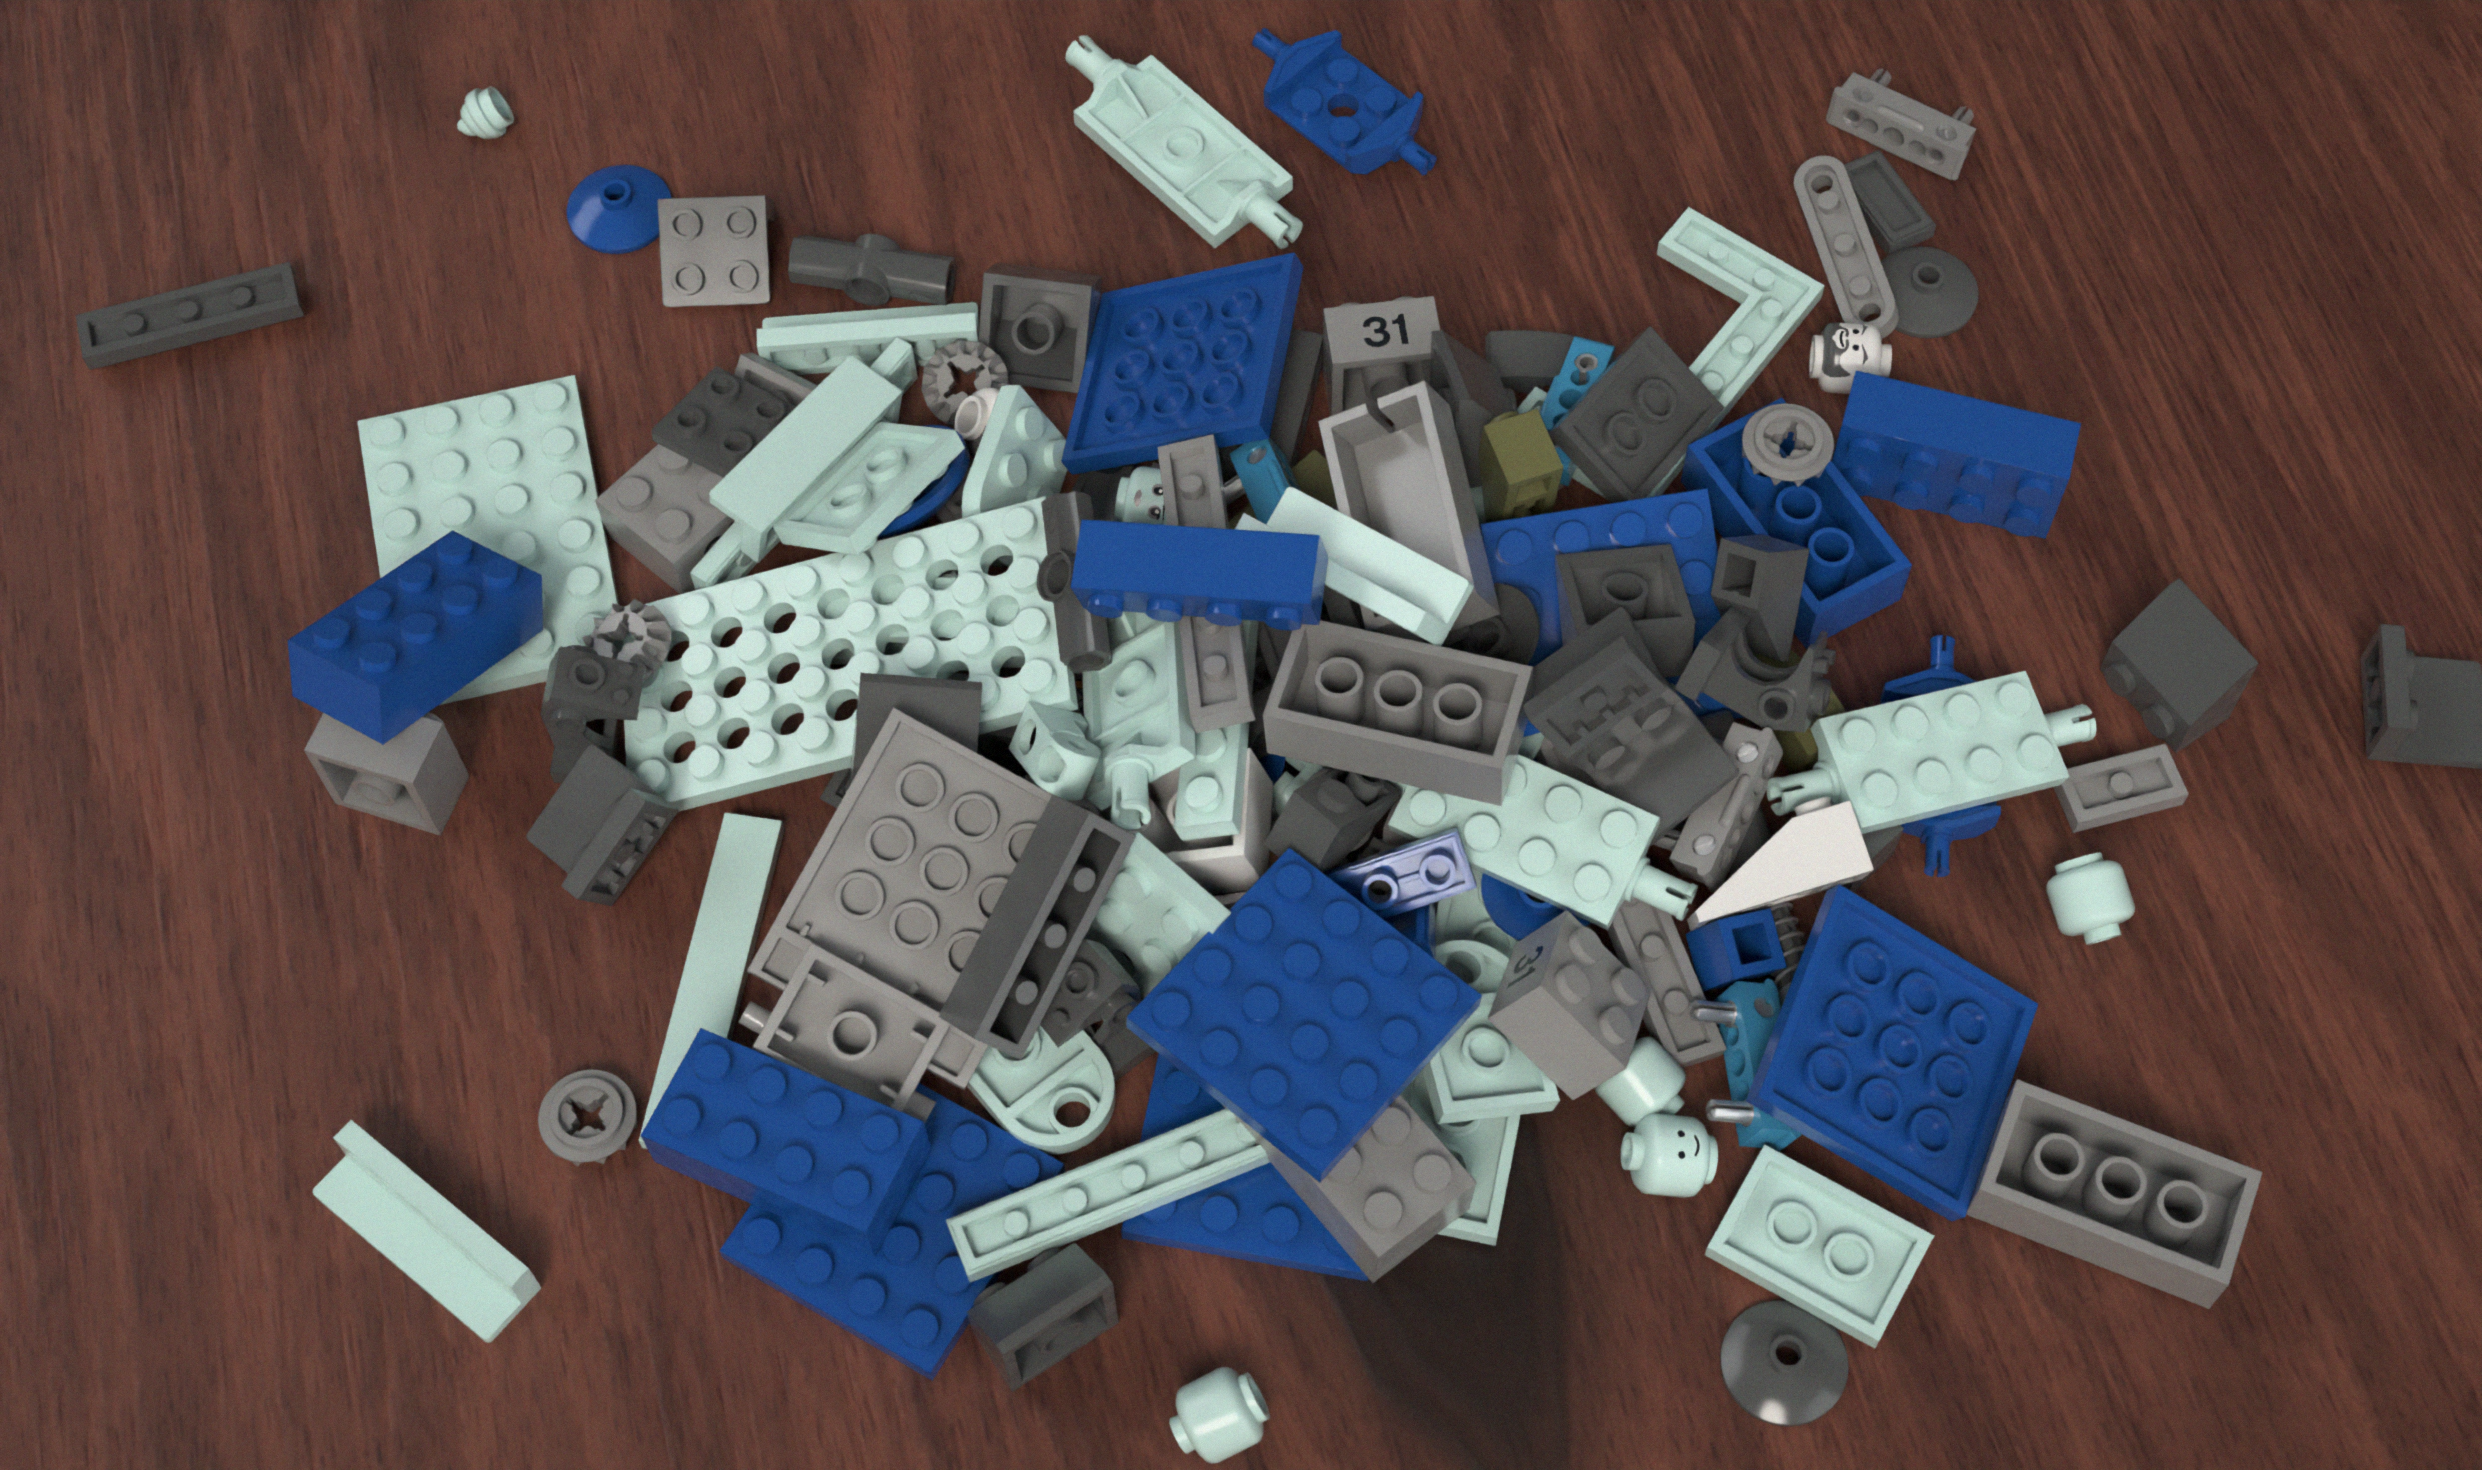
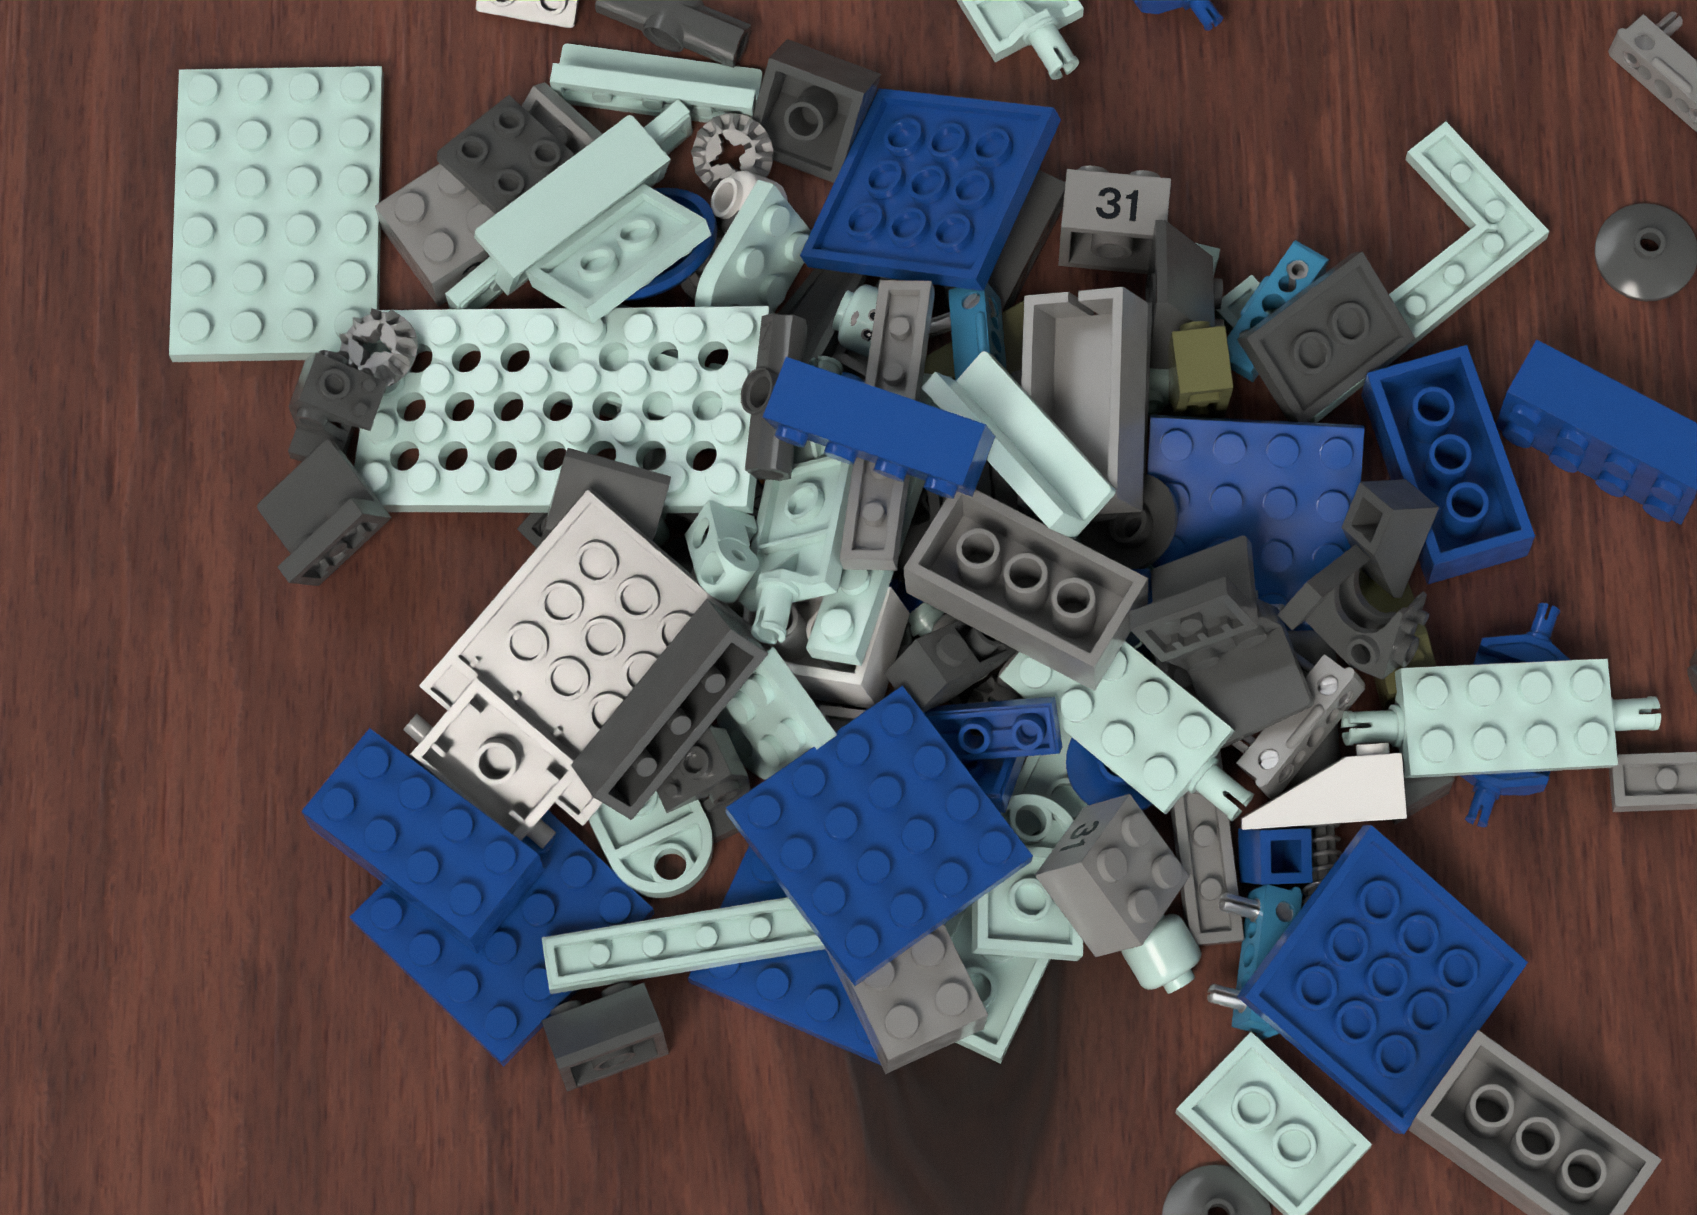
camera: 15 degrees right, 10 degrees up
(406, 780) = (150, 415): light grey brick -> none
(416, 636) = (195, 312): blue brick -> none
(425, 1235) = (108, 846): light aqua panel -> none
(587, 1091) = (269, 750): light grey gear -> none
(721, 941) = (403, 646): light aqua tile -> none
(1219, 1415) = (731, 1154): light aqua head -> none
(1527, 357) = (1256, 244): dark grey slope -> none
(1642, 583) = (1272, 512): dark grey slope -> none
(1670, 1155) = (1167, 1022): light aqua head -> none
(1767, 431) = (1447, 374): light grey gear -> none
(1845, 244) = (1582, 195): light grey plate -> none
(1845, 349) = (1551, 309): white head -> none
(1887, 204) = (1635, 152): dark grey tile -> none
(2090, 898) = (1604, 878): light aqua head -> none

